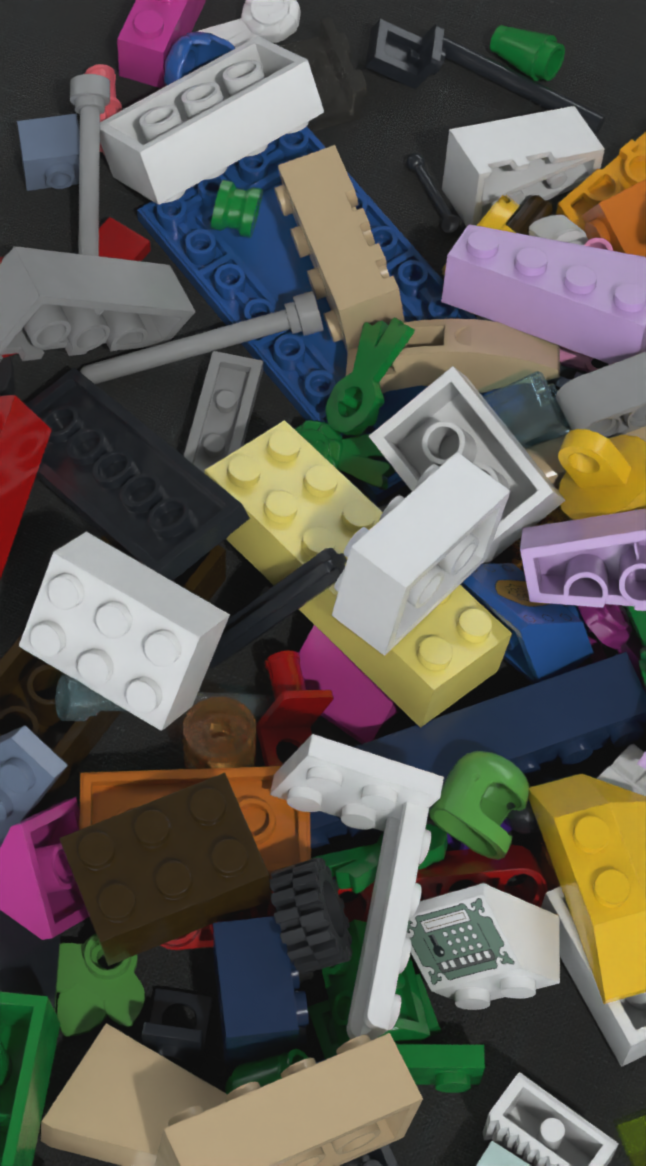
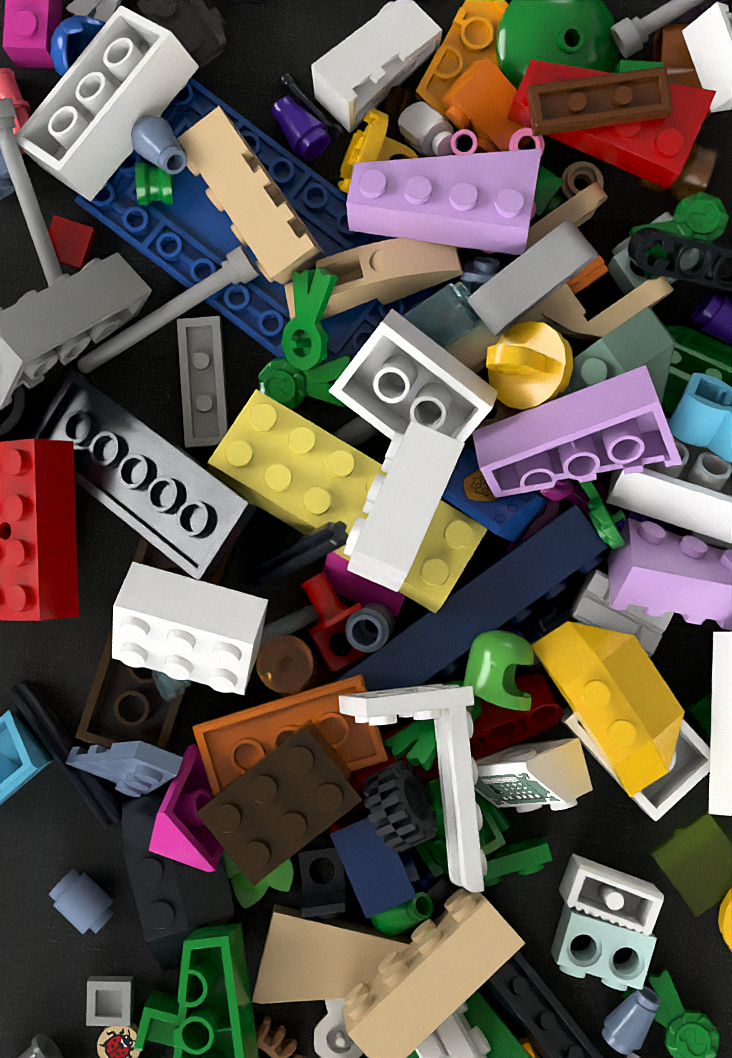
camera: 10 degrees left, 25 degrees up
(254, 164) = (157, 143): none -> sand blue cone
(335, 721) = (361, 635): none -> sand blue brick
(418, 210) = (302, 130): none -> dark purple cone

